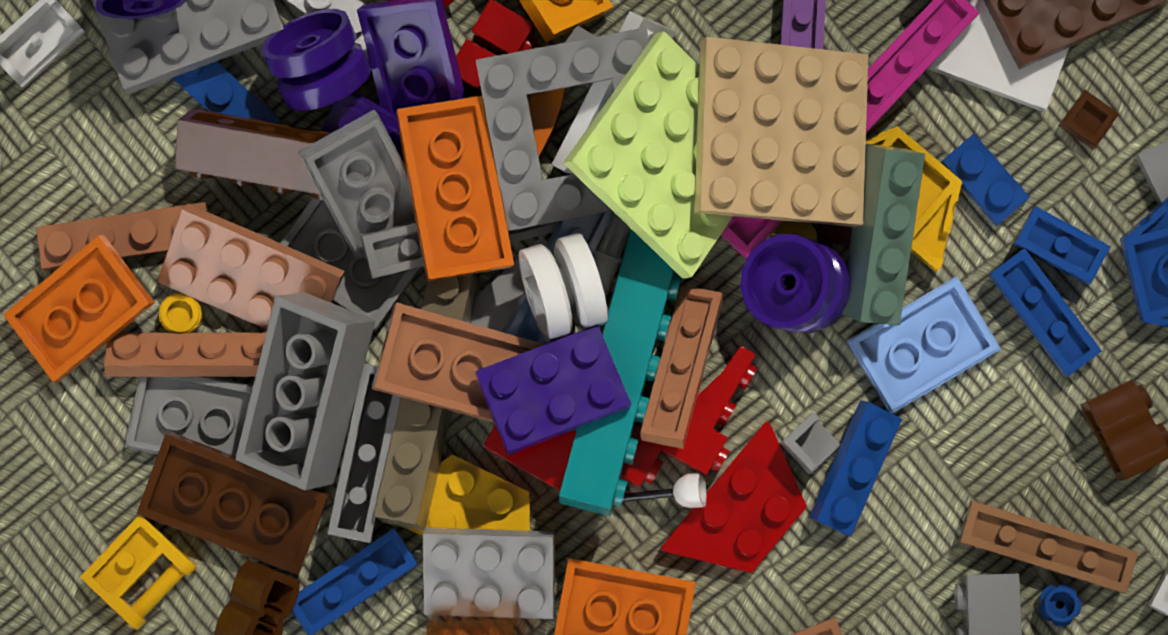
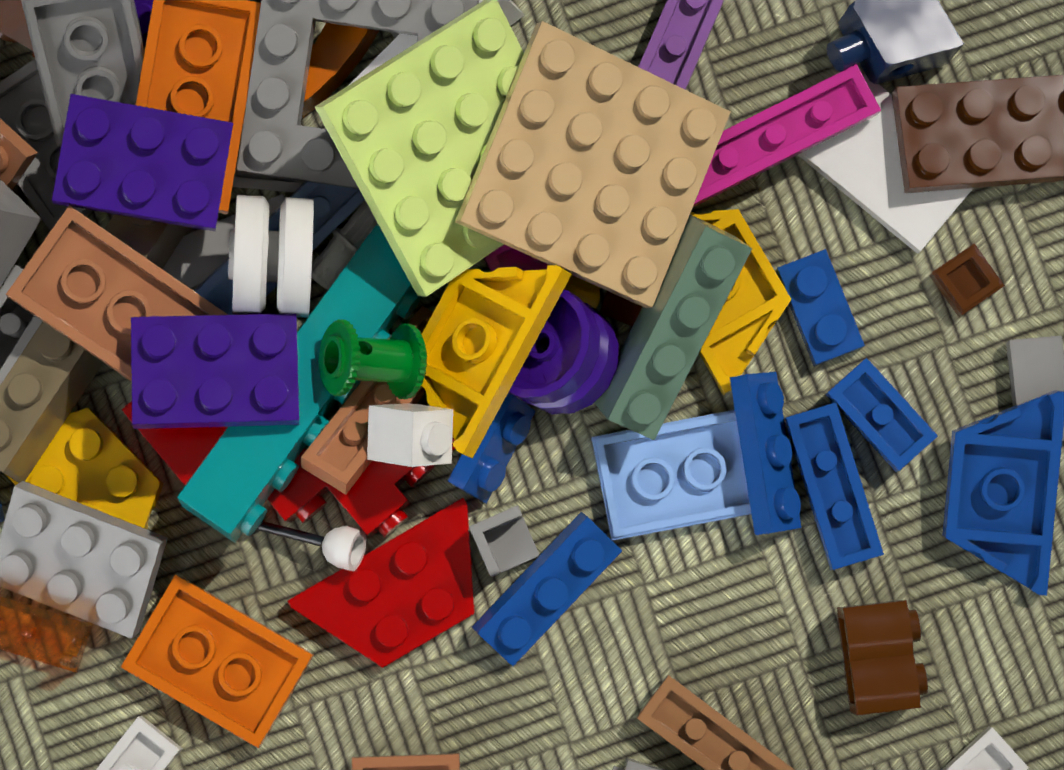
camera: 25 degrees right, 0 degrees up
(439, 250) = (142, 162): none -> dark purple plate
(684, 334) = (395, 360): none -> green hose
(717, 385) = (410, 434): none -> white brick
(743, 298) = (482, 340): none -> yellow wing
(773, 385) = (488, 467): none -> blue plate
(985, 305) = (766, 452): none -> blue plate

